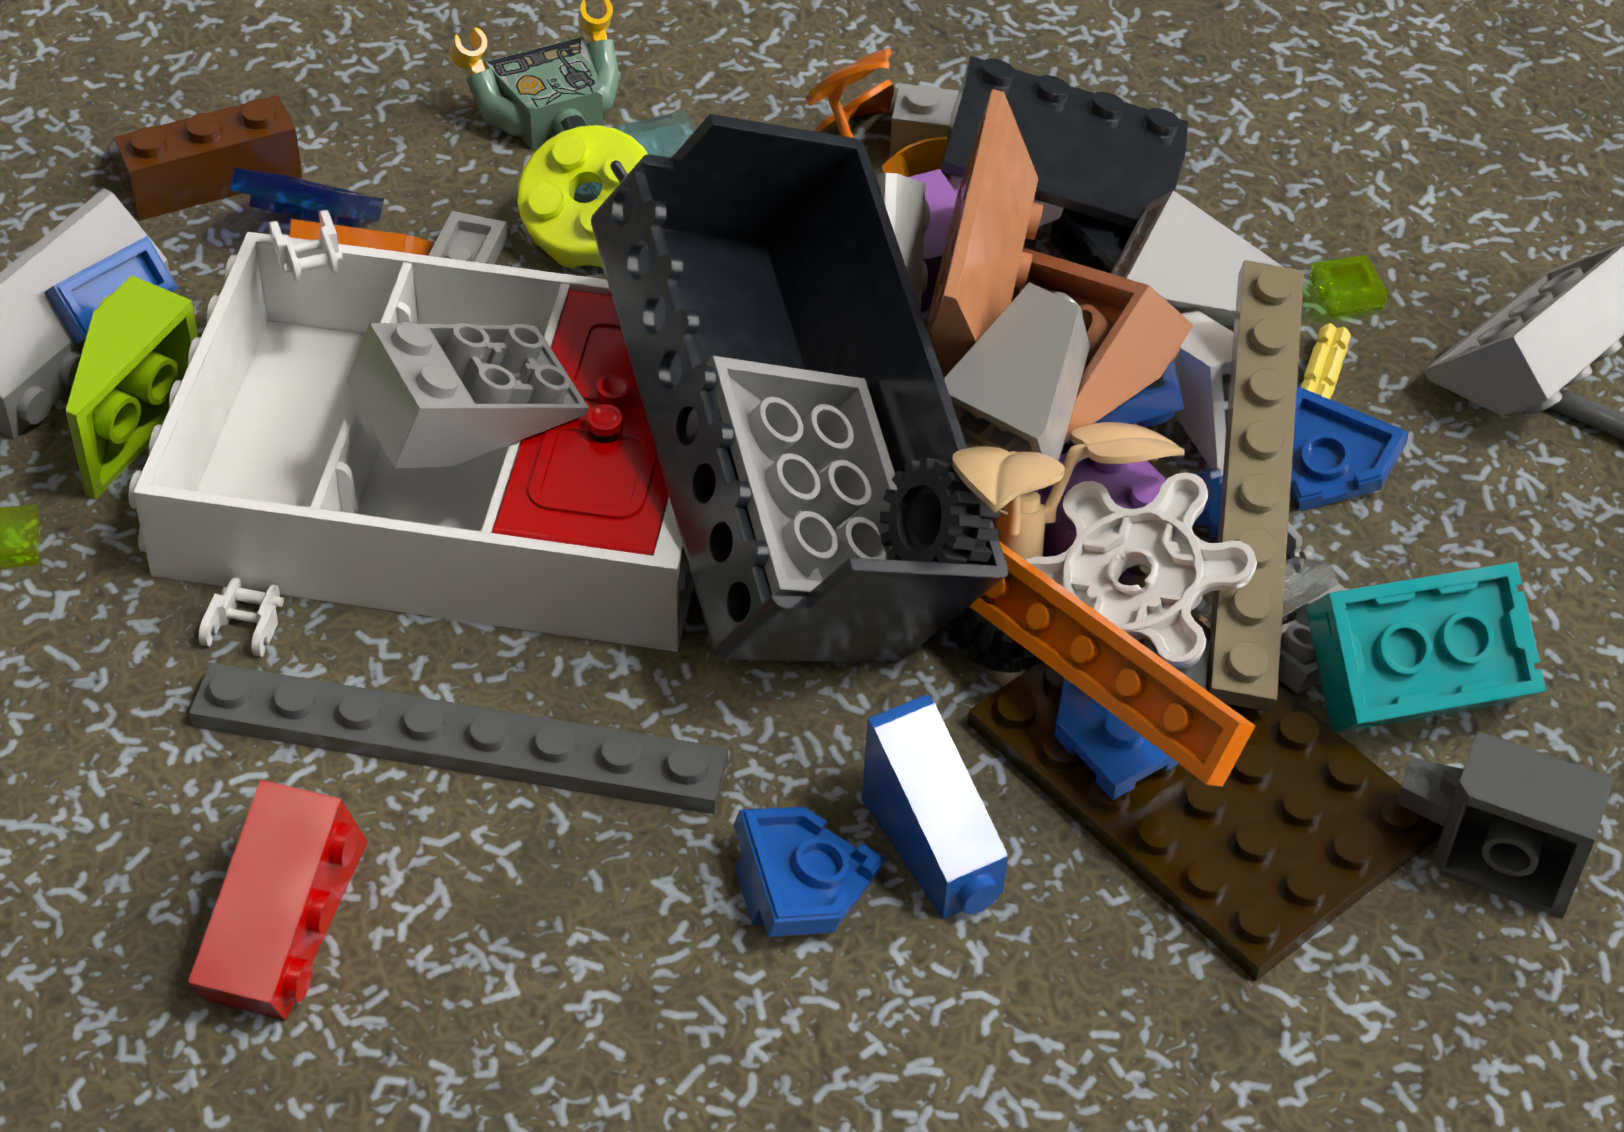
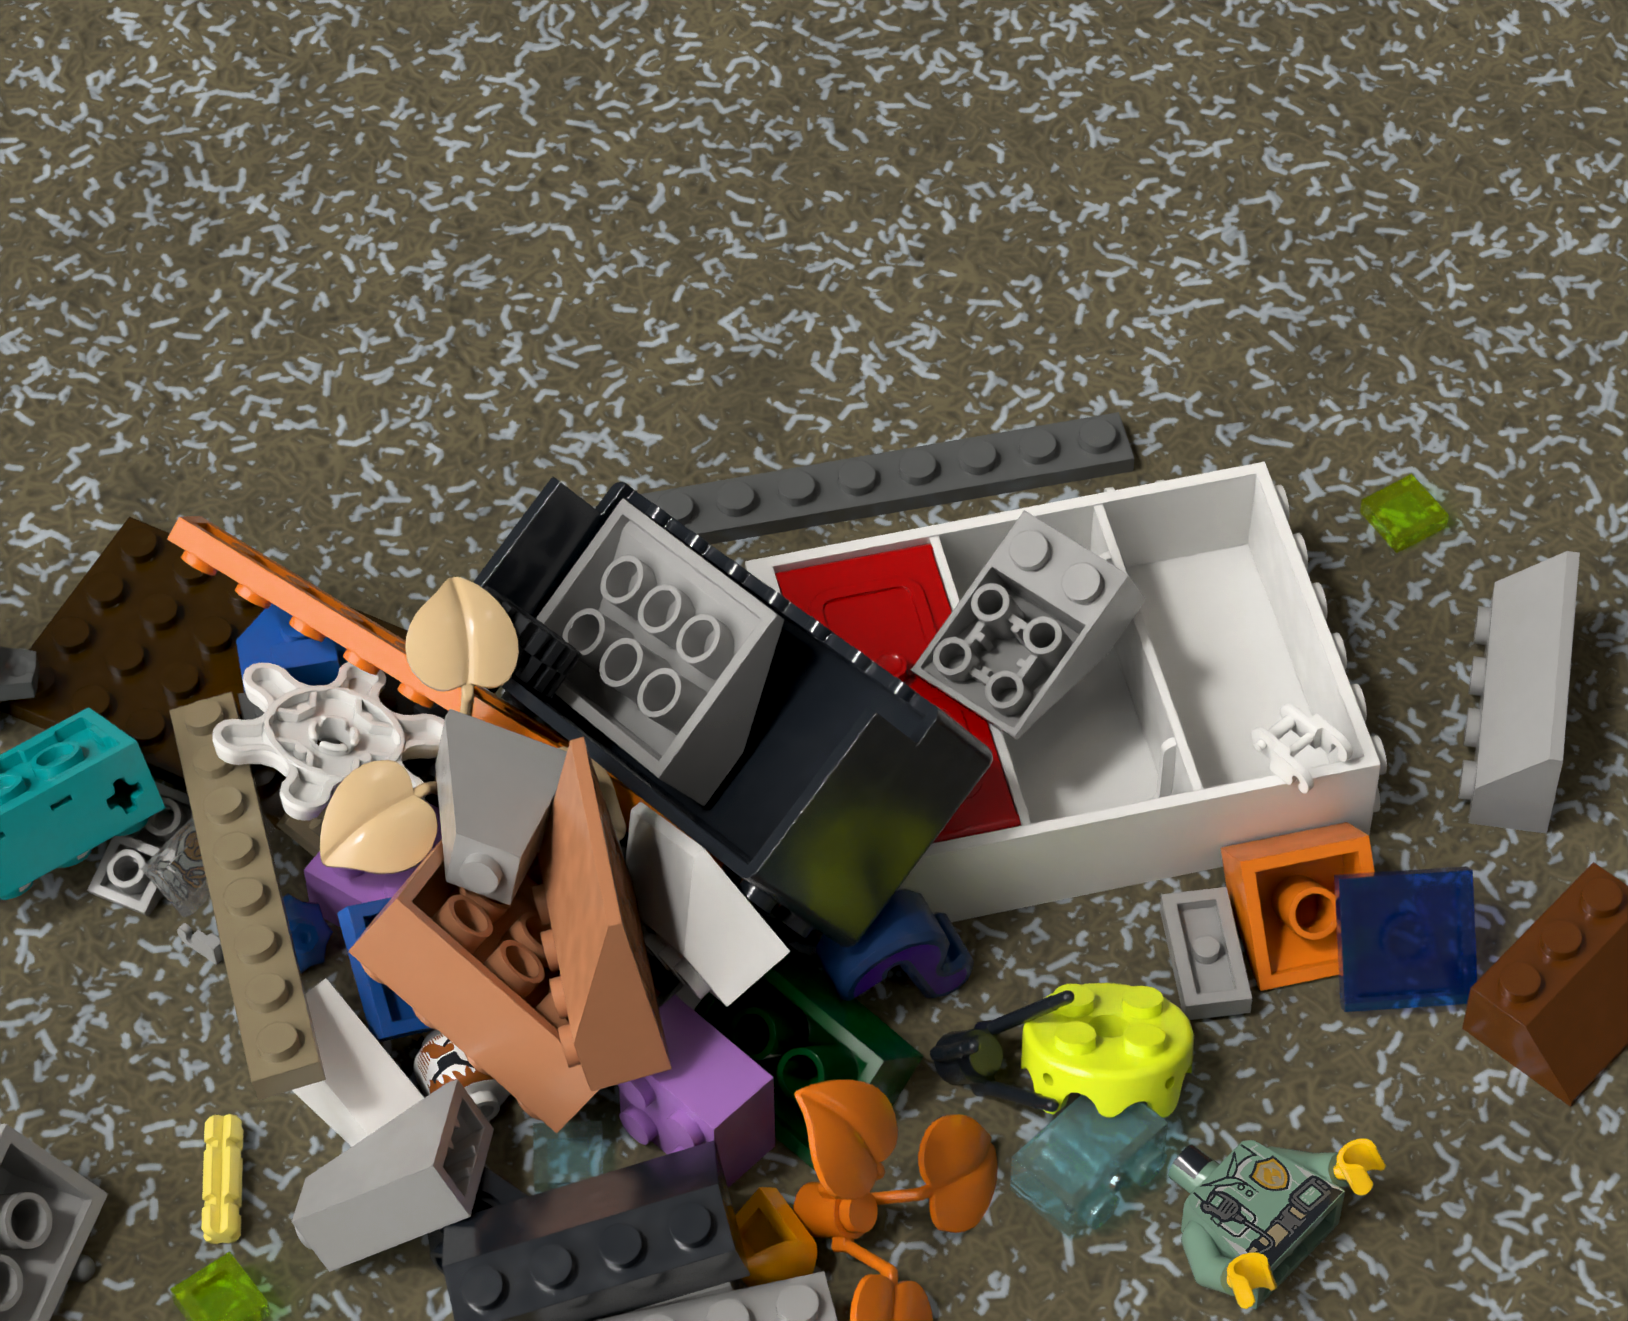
camera: 160 degrees right, 5 degrees up
(83, 292) = (1485, 710): tile -> none
(126, 376) = (1405, 645): lime slope -> none
(277, 900) = (929, 287): wedge -> none
(798, 872) = (525, 450): blue plate -> none
(932, 808) = (440, 514): slope -> none
(1339, 451) = (182, 1061): blue plate -> none

